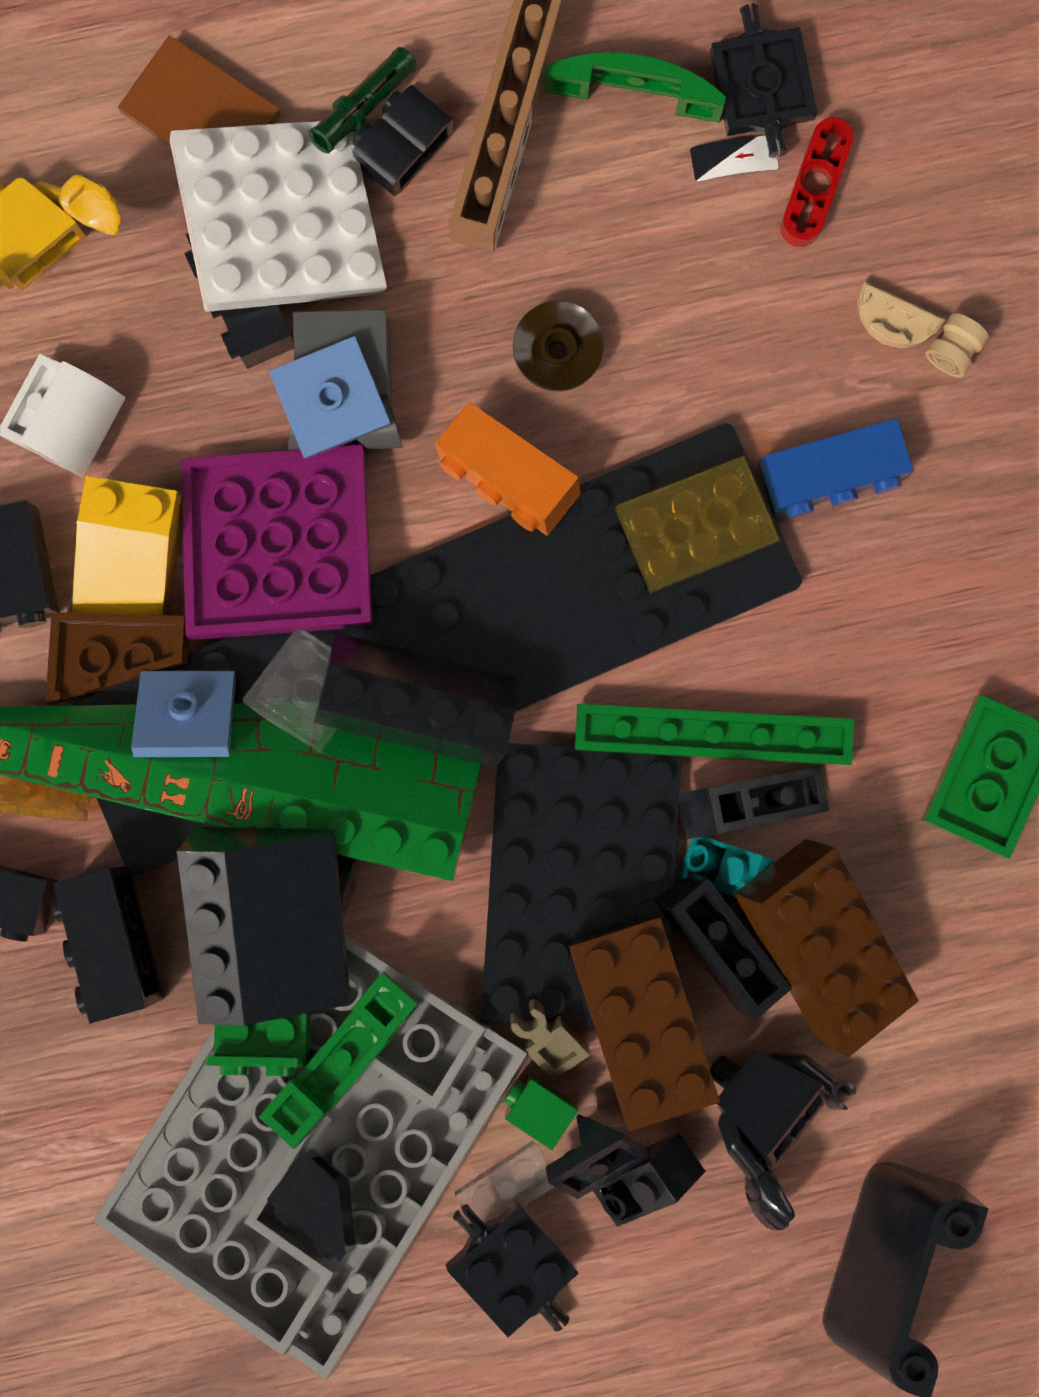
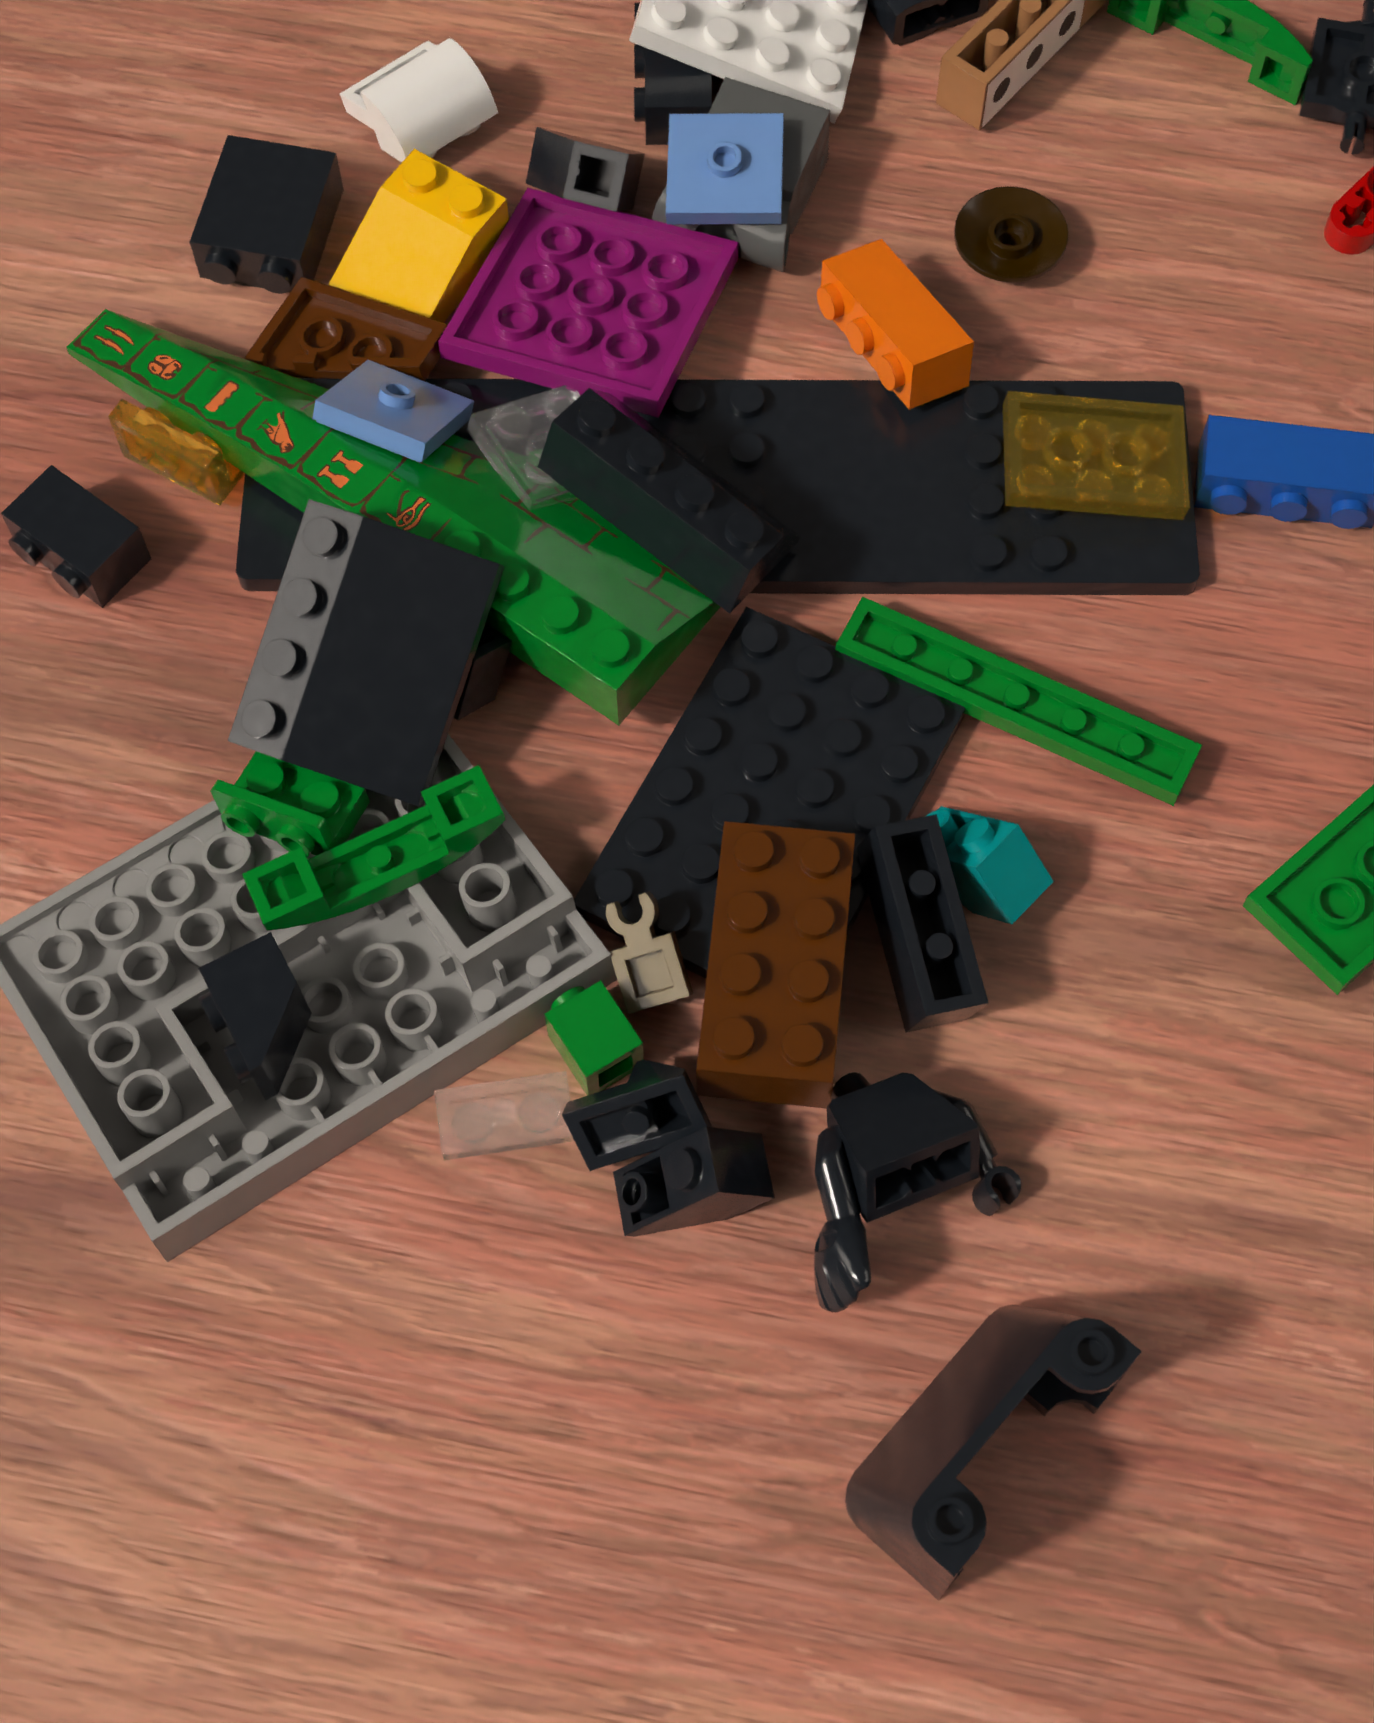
camera: 25 degrees right, 20 degrees down
(106, 943) = (170, 618): black brick -> none
(218, 428) = (584, 170): none -> black slope
(511, 1268) = (462, 1213): black plate -> none
(731, 158) = (1297, 139): sticker -> none
(752, 802) = (1021, 783): black slope -> none
(827, 946) = (1056, 967): reddish brown brick -> none

